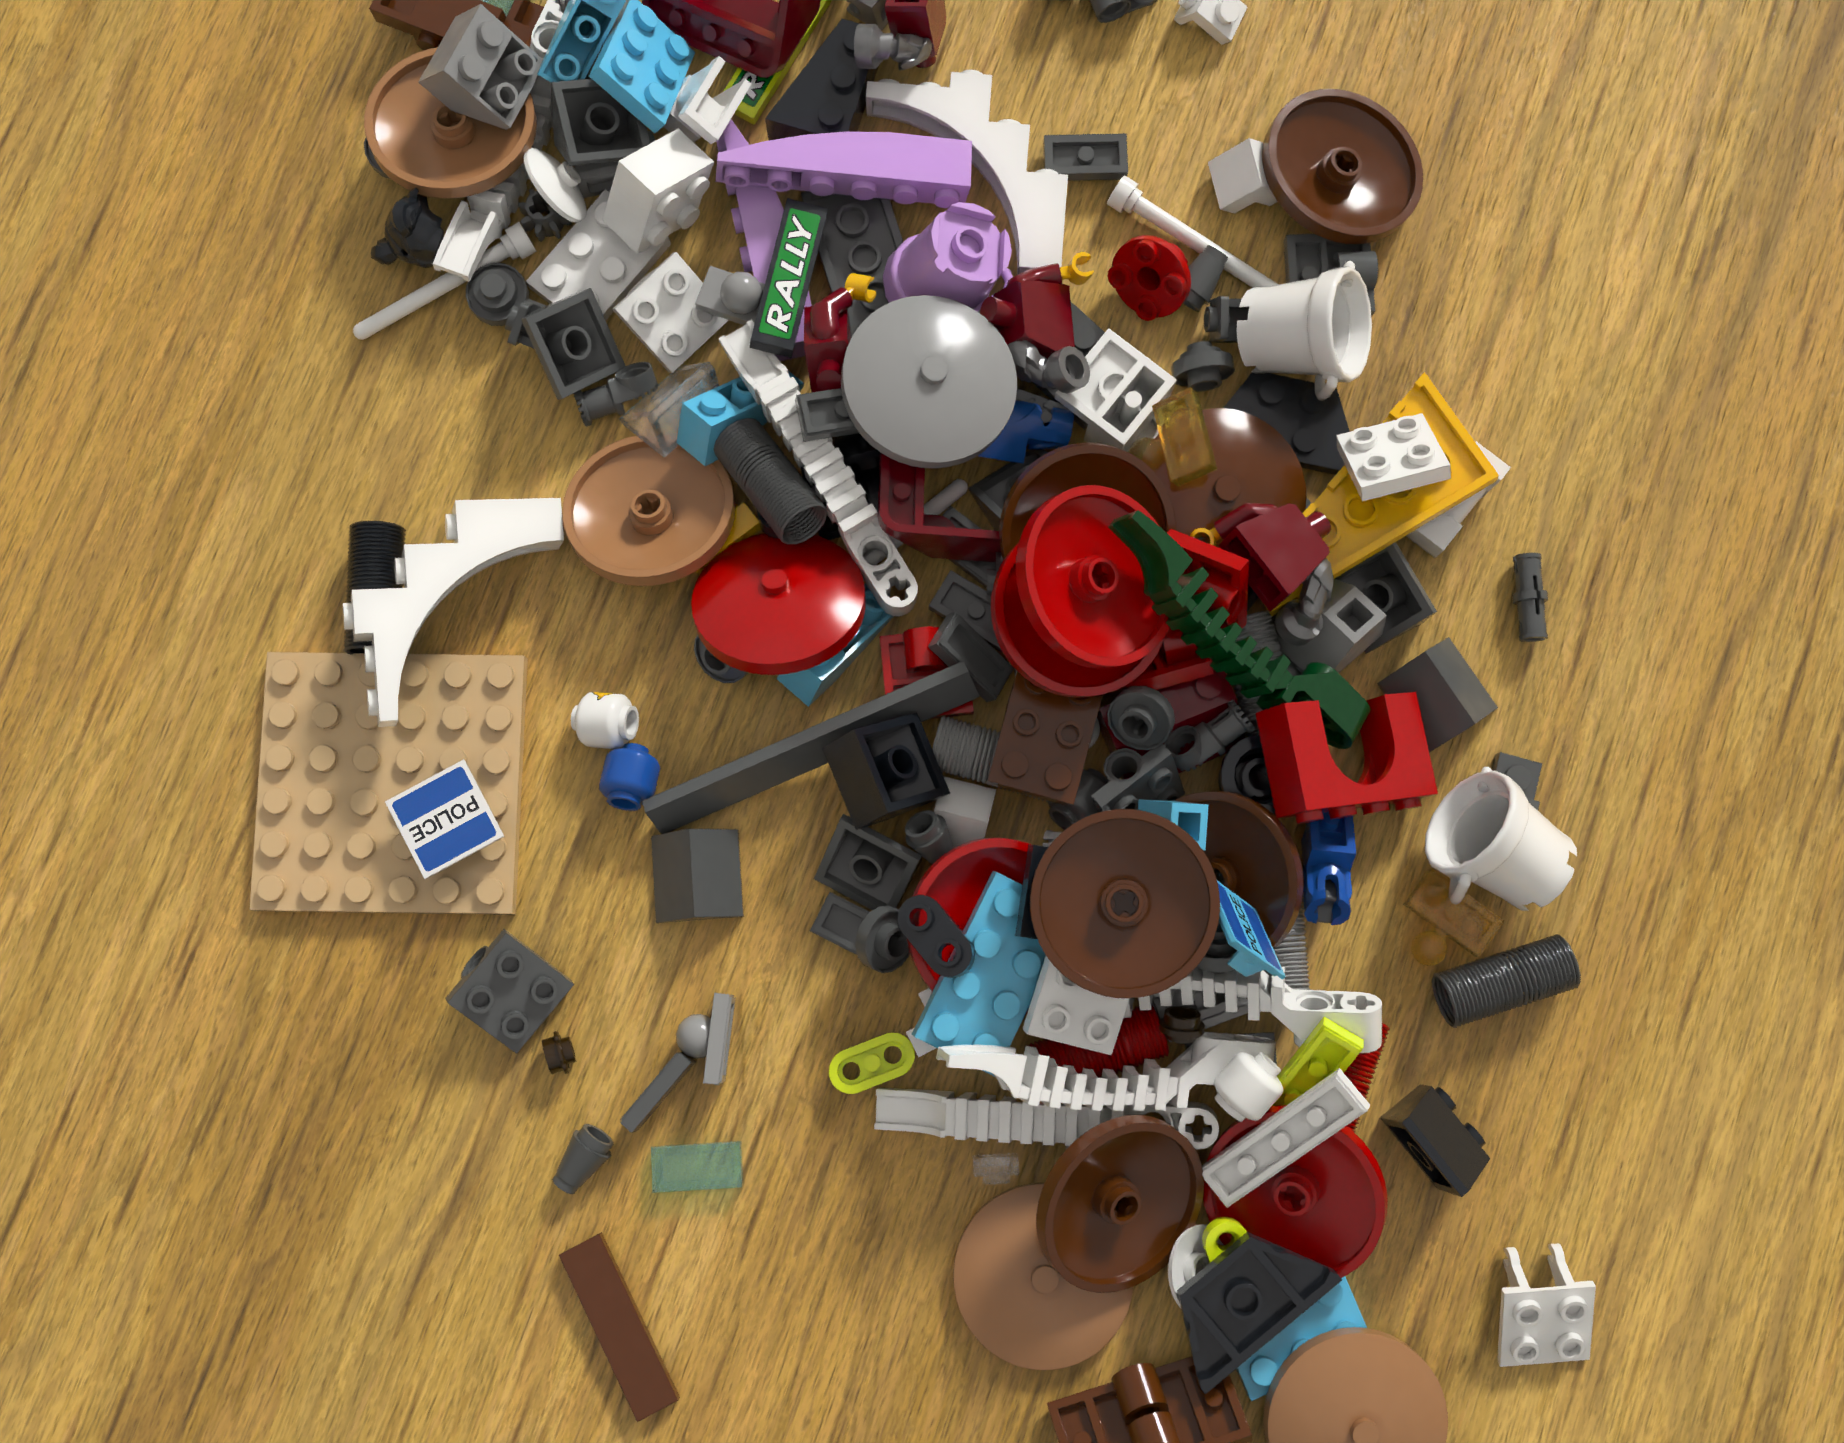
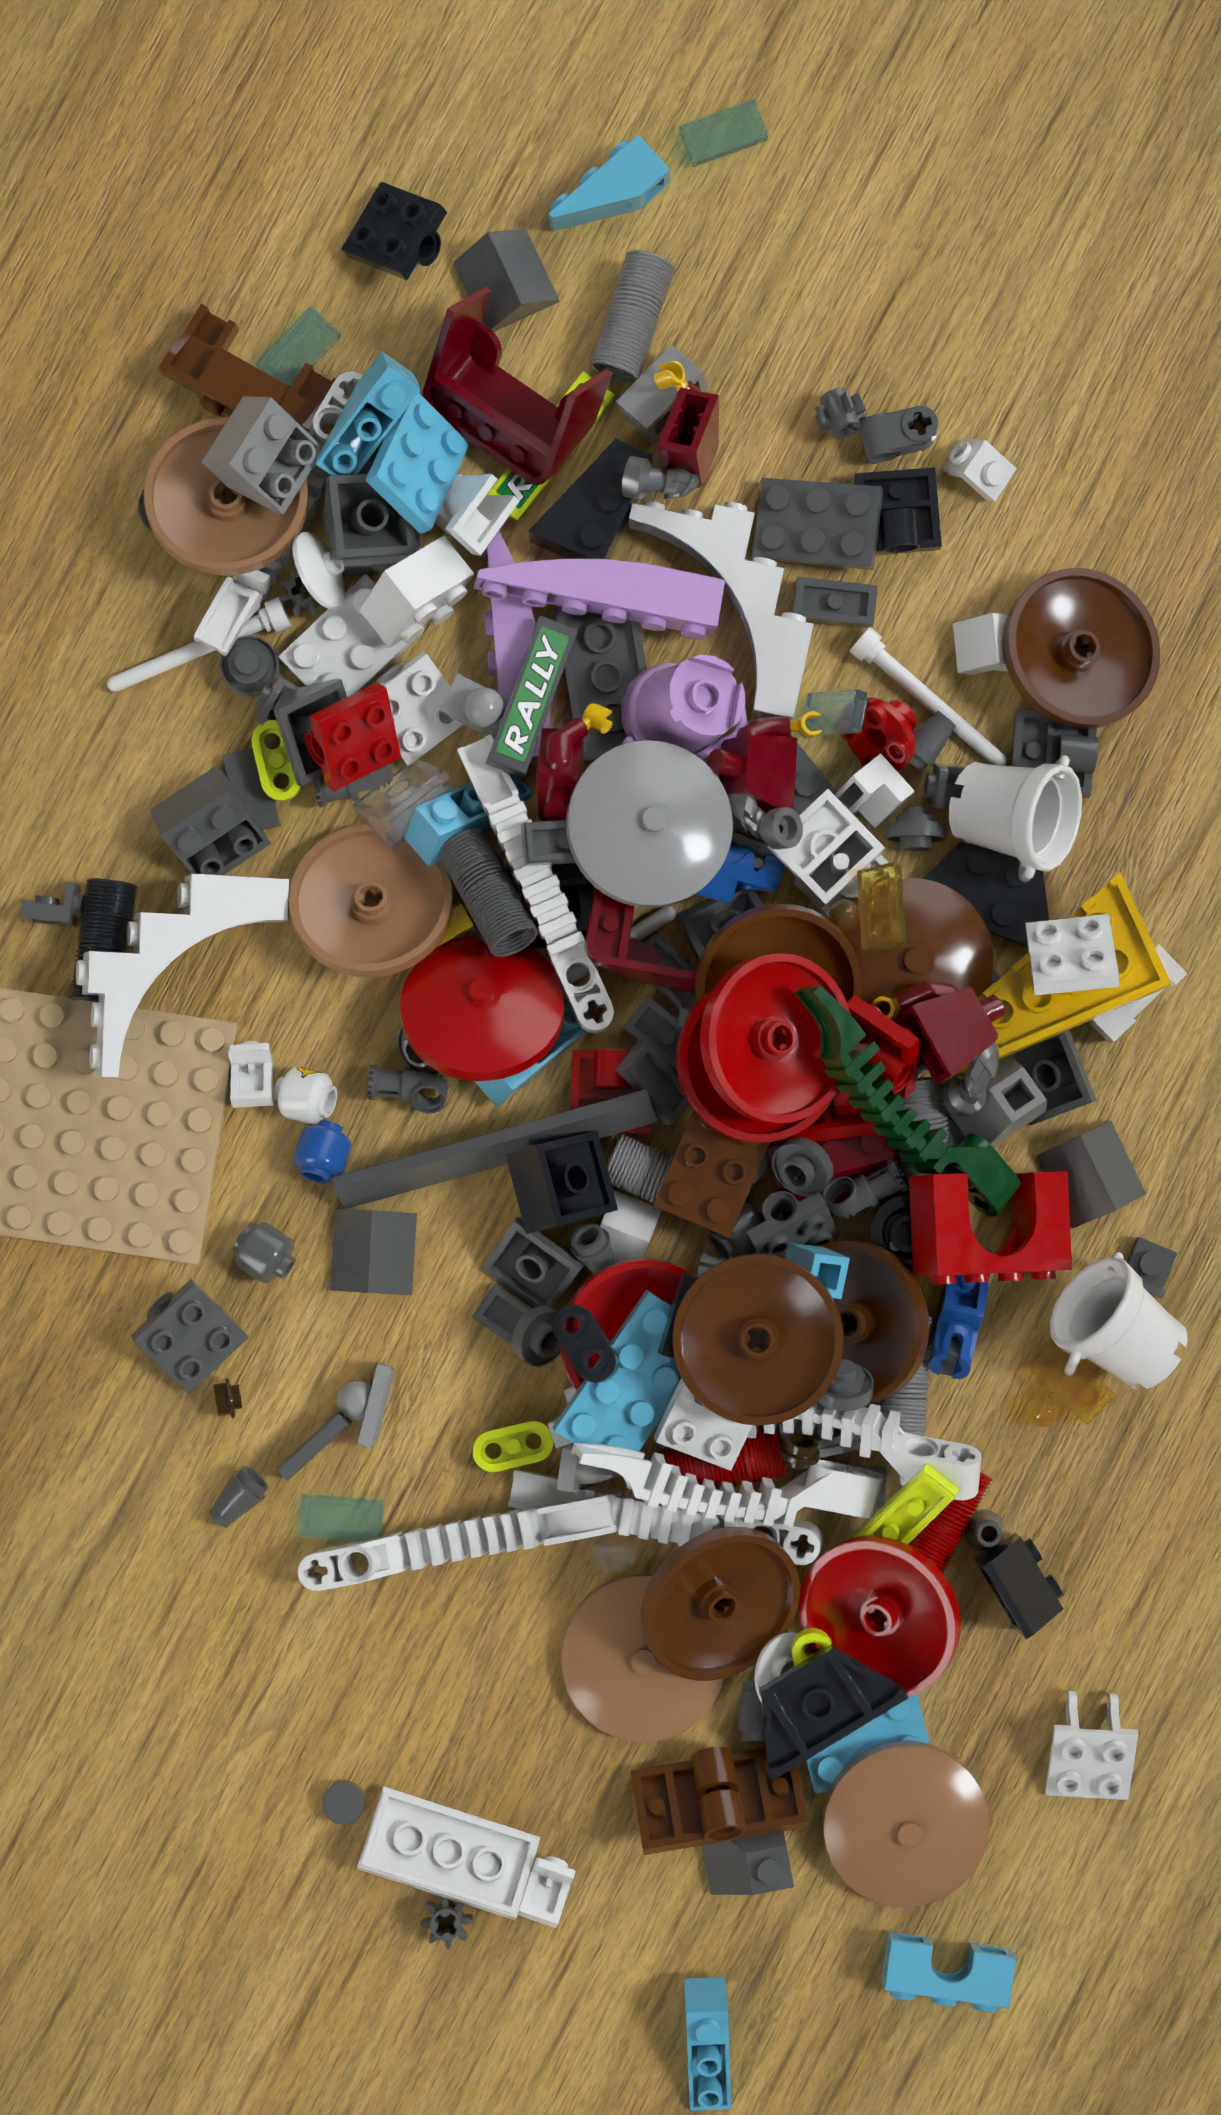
camera: 10 degrees right, 5 degrees up
(315, 566) = (48, 911): none -> dark grey bracket
(410, 233) = (174, 600): black hair -> none
(444, 819) = (148, 1171): piece -> none
(473, 454) = (209, 825): none -> dark grey slope
(514, 419) = (244, 775): none -> dark grey tile
(532, 385) = (273, 763): none -> neon yellow plate
(545, 705) = (251, 1074): none -> white bracket
(580, 891) = (264, 1252): none -> dark grey head
(609, 340) = (353, 737): none -> red plate
(619, 1327) = (254, 1651): reddish brown tile -> none
(709, 697) = (406, 1086): none -> dark grey connector
(825, 1173) = (458, 1539): none -> white piece
(945, 1082) = (575, 1475): none -> light grey tile
(1058, 80) = (818, 523): none -> dark grey plate
(1110, 257) = (840, 711): none -> clear light blue tile
(1135, 62) = (908, 510): none -> black plate
(1157, 330) = (875, 791): none -> white piece
(1169, 1322) = (750, 1715): none -> dark grey cone
(1246, 935) = (865, 1378): piece -> none
(1248, 1086) = (850, 1515): white head -> none
(1284, 1137) = (875, 1565): white tile -> none
(1380, 1088) = (980, 1520): none -> dark grey cone
(1496, 986) = (1093, 1454): dark grey piece -> none
(1530, 597) = (1193, 1093): dark grey pin -> none

